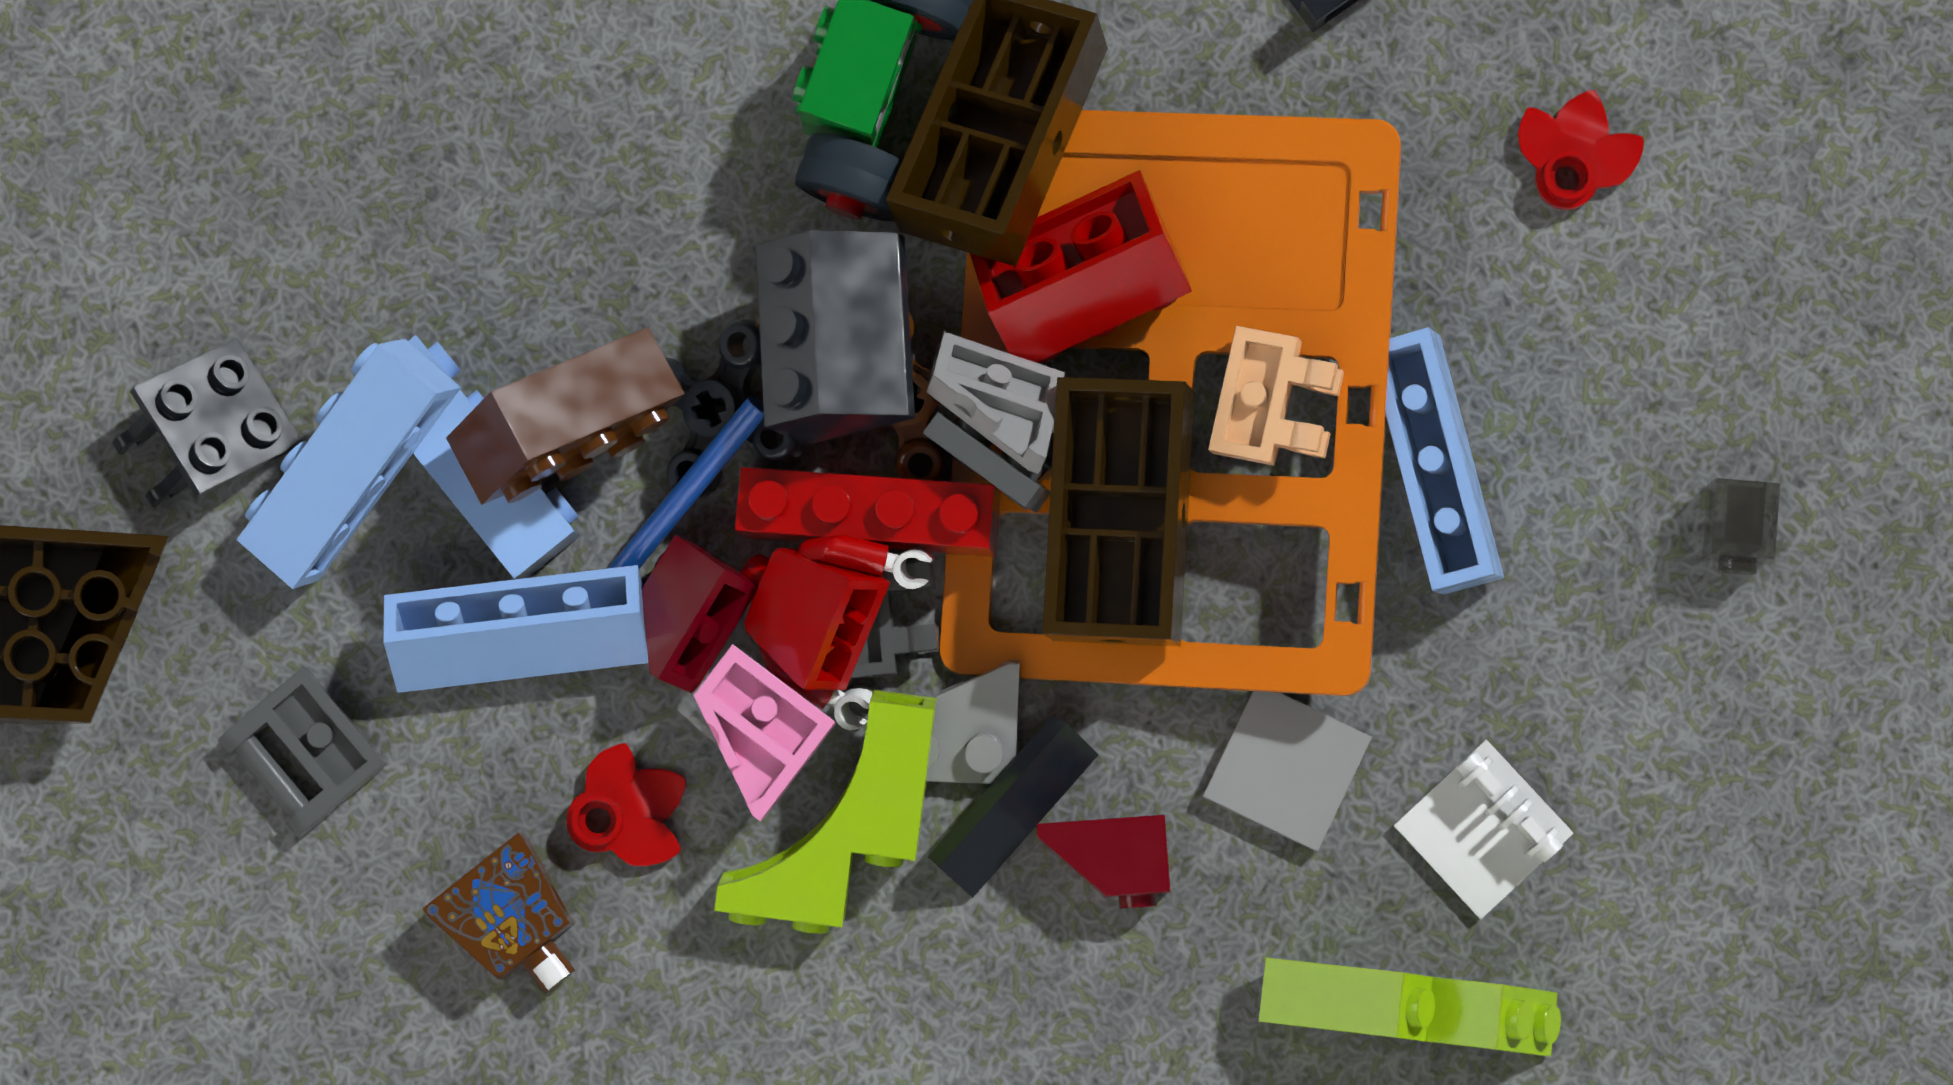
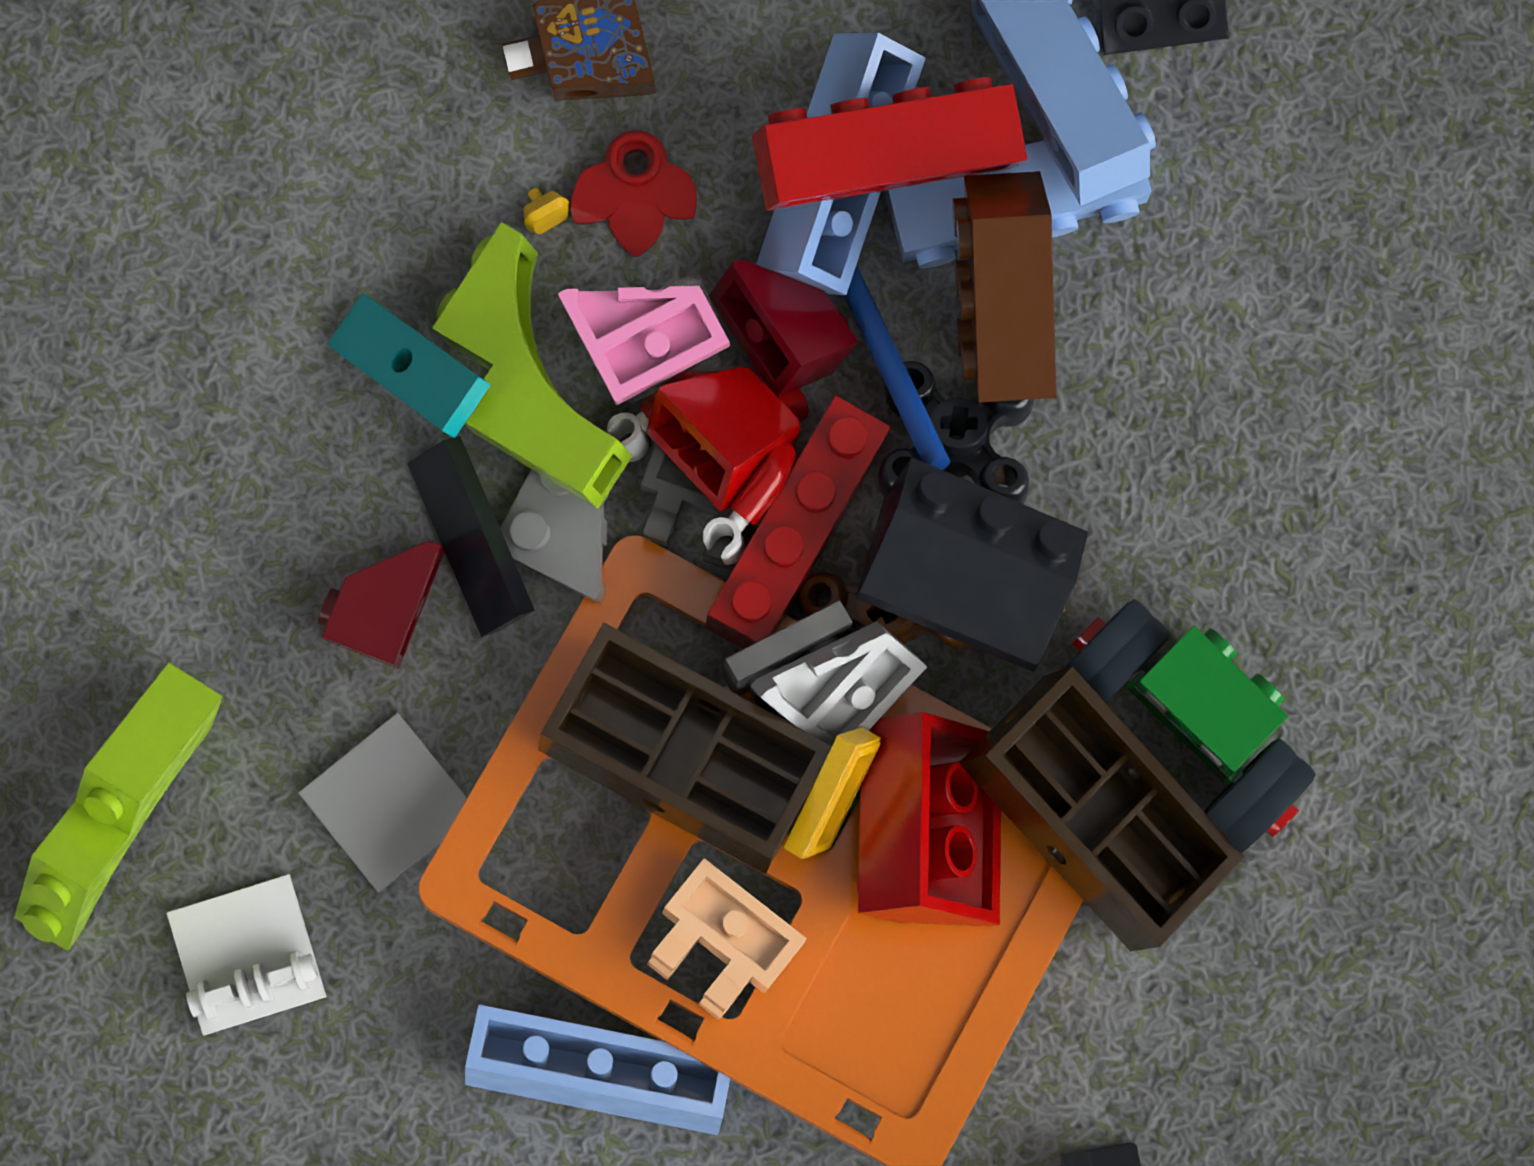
camera: 115 degrees right, 0 degrees up
(487, 580) = (888, 145): none -> red brick
(681, 883) = (545, 211): none -> yellow rock
(886, 931) = (409, 365): none -> teal tile
(1095, 361) = (833, 792): none -> yellow tile

